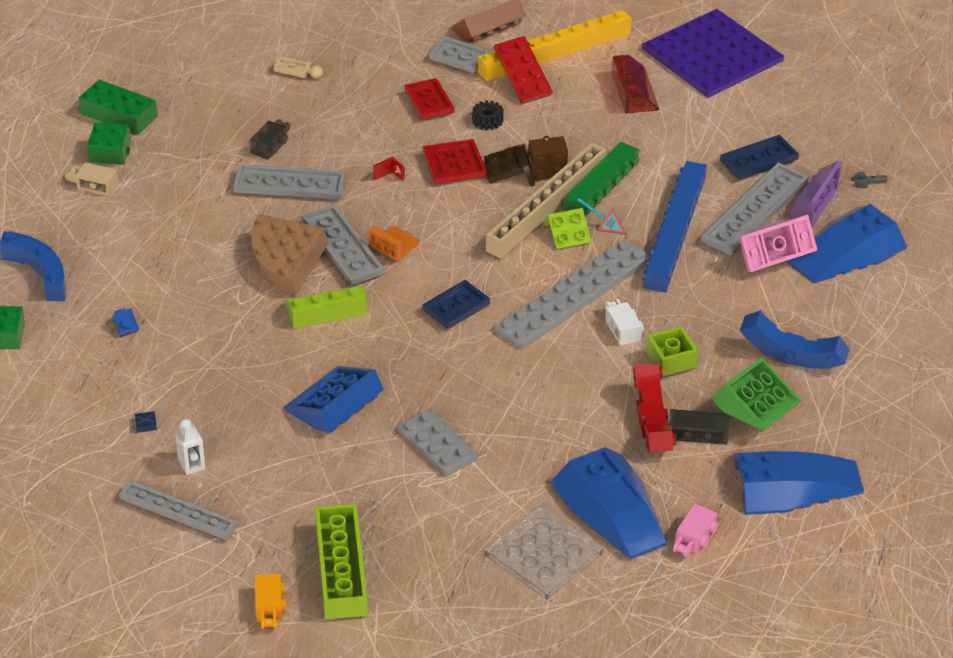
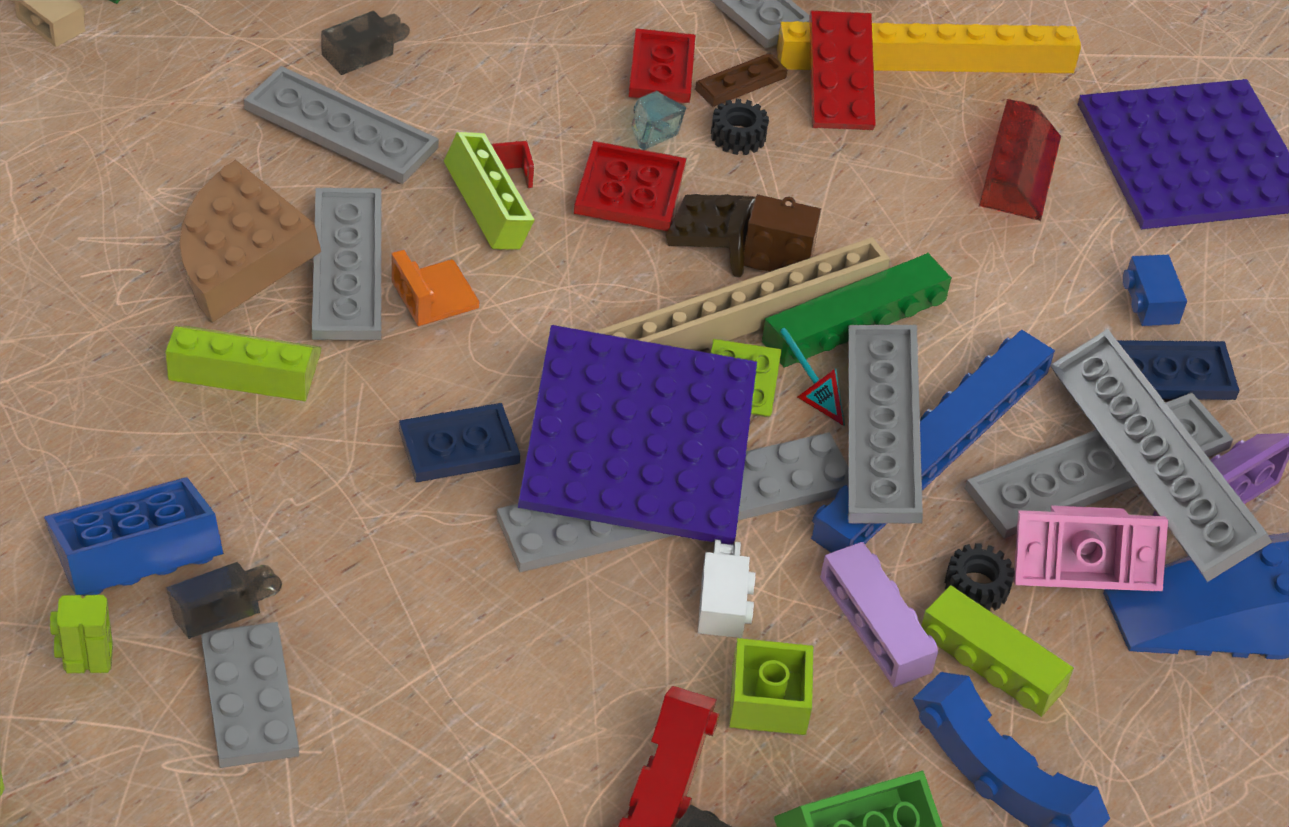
camera: 20 degrees right, 5 degrees up
(349, 442) = (82, 633): none -> lime brick
(389, 186) = (488, 191): none -> lime brick
(397, 407) = (220, 597): none -> clear smoke brick
(445, 125) = (656, 119): none -> clear light blue slope
(471, 92) = (741, 79): none -> reddish brown tile
(542, 268) = (639, 435): none -> dark purple plate
(651, 222) = (884, 425): none -> light grey plate
(697, 306) = (879, 614): none -> lavender brick
(731, 283) = (985, 563): none -> black tyre
(734, 122) = (1154, 290): none -> blue brick
(750, 299) = (996, 651): none -> lime brick
(783, 190) = (1160, 456): none -> light grey plate

